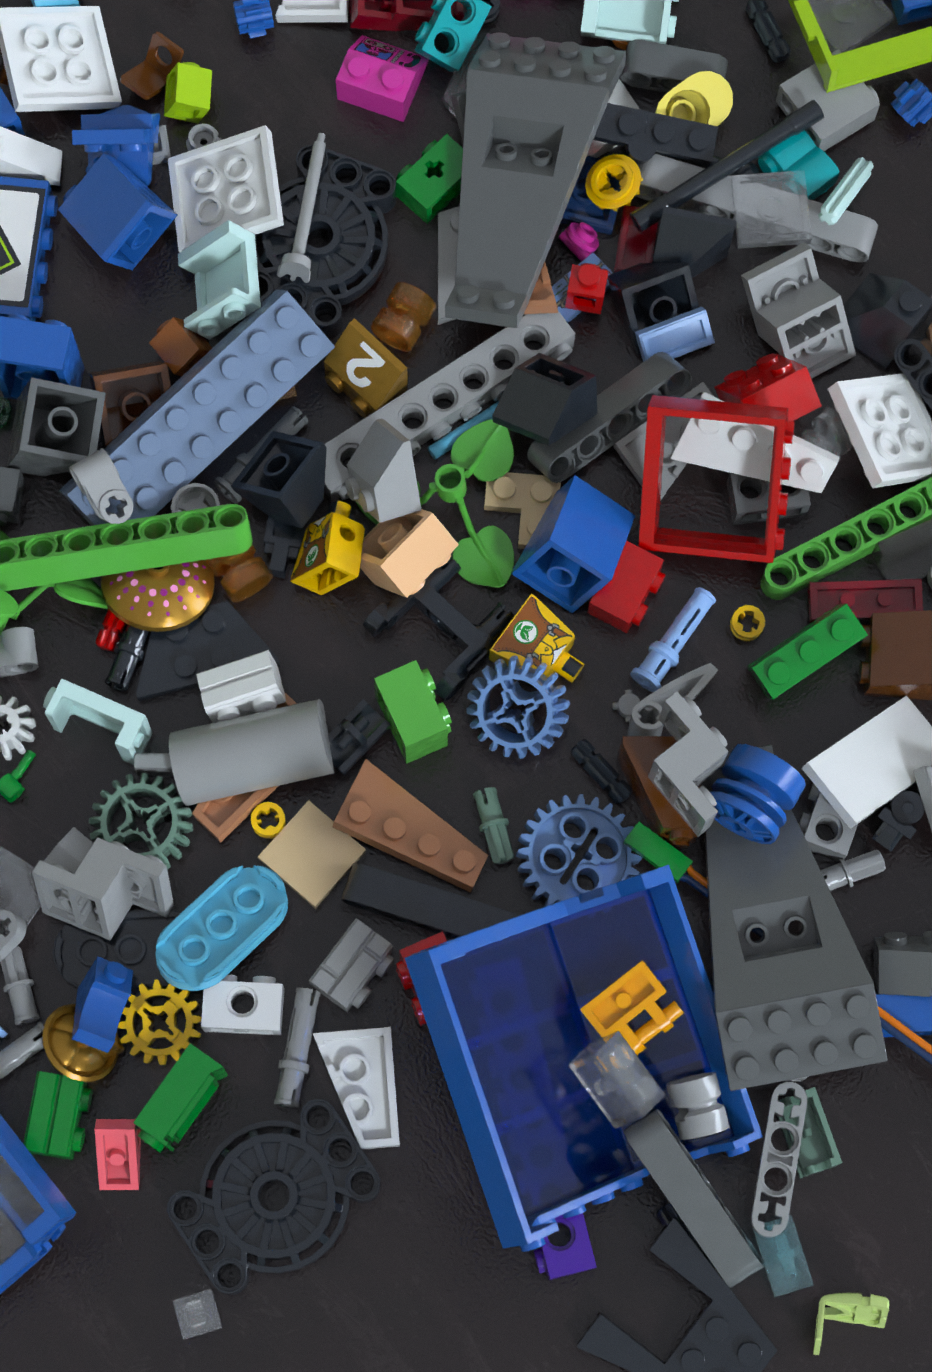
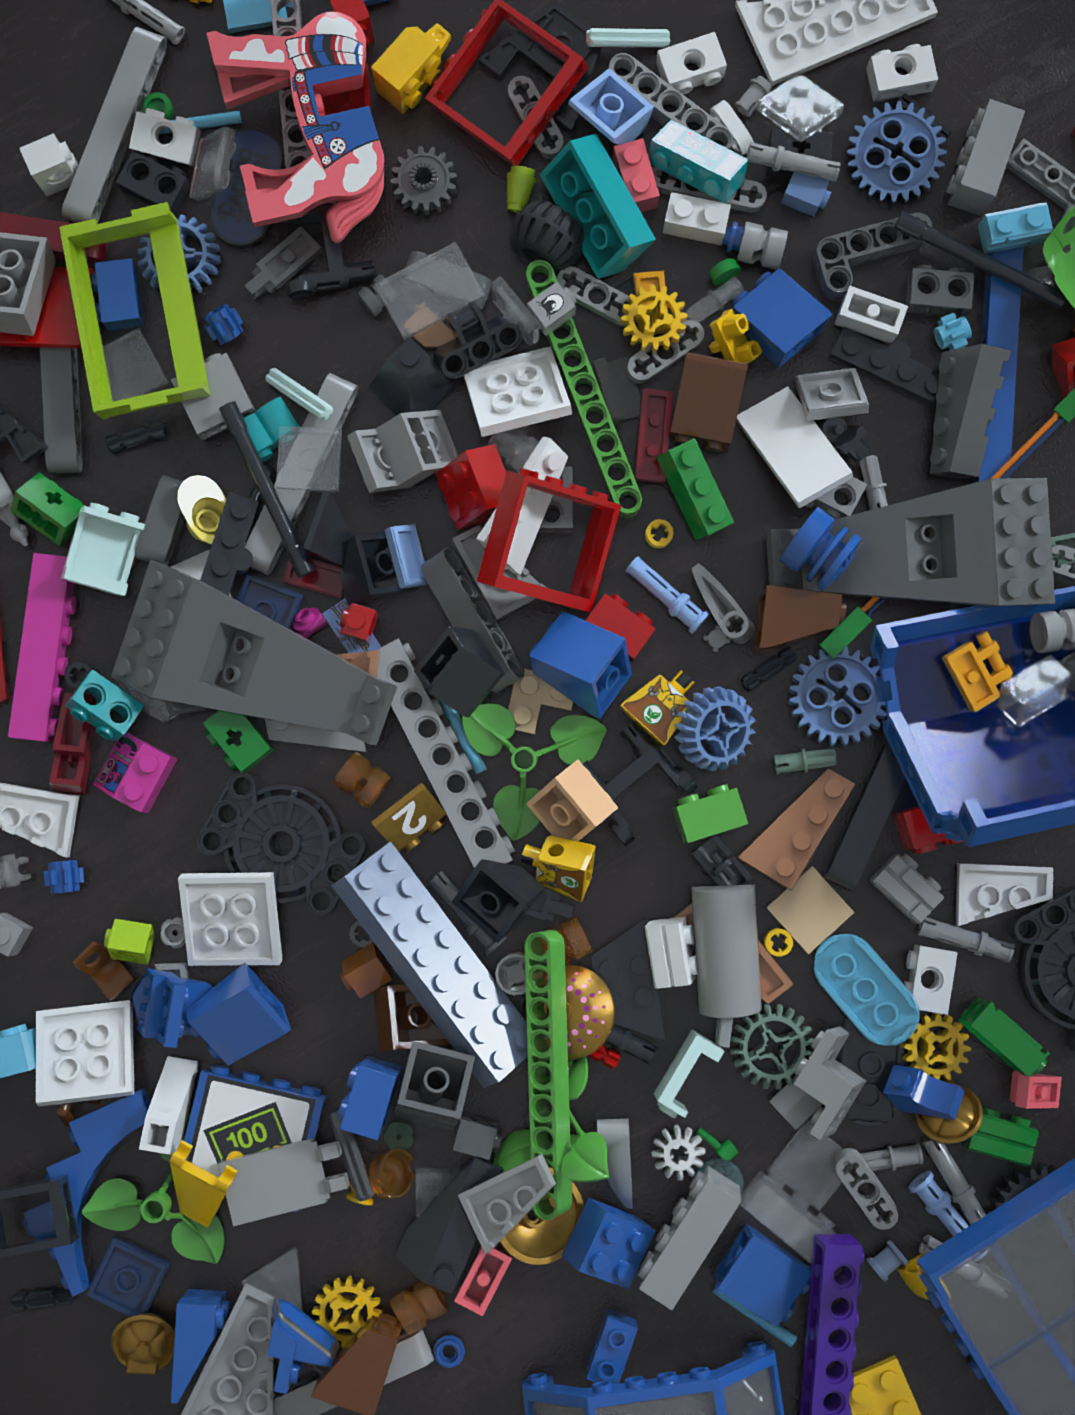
camera: 80 degrees left, 10 degrees up
(98, 482) = (499, 1051): light grey piece -> none
(224, 278) = (314, 928): light aqua panel -> none
(296, 263) = (311, 865): light grey piece -> none
(383, 474) = (511, 814): light grey slope -> none
(621, 168) = (261, 599): yellow gear -> none
(688, 762) = (799, 596): light grey bracket -> none

